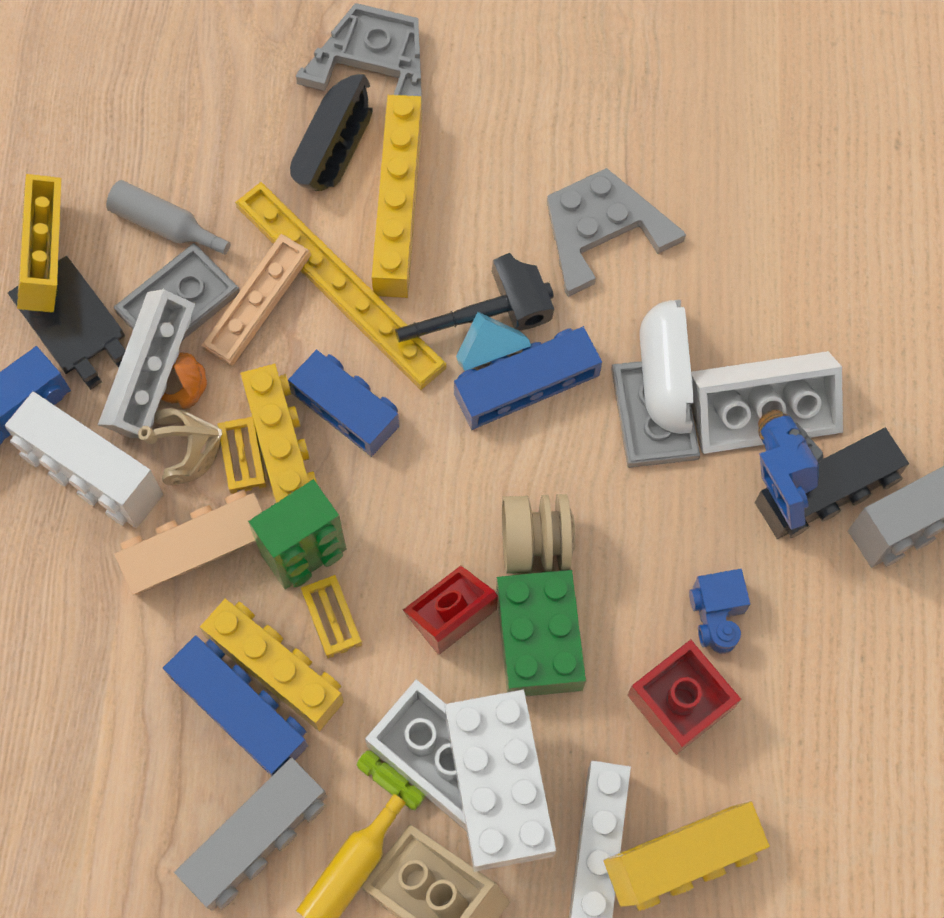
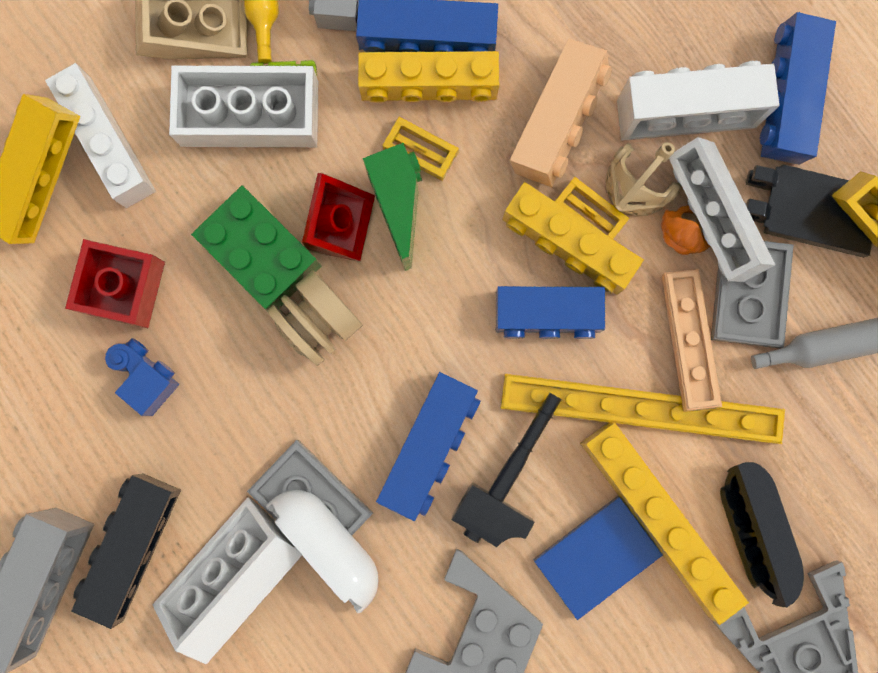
camera: 145 degrees right, 15 degrees up
(299, 535) = (482, 163): green brick -> none
(387, 574) = (395, 185): none -> green slope
(466, 210) = (597, 557): none -> blue tile
(489, 341) = (479, 450): medium azure slope -> none
(499, 781) = (187, 101): white brick -> none
(788, 464) = (157, 531): blue plate -> none

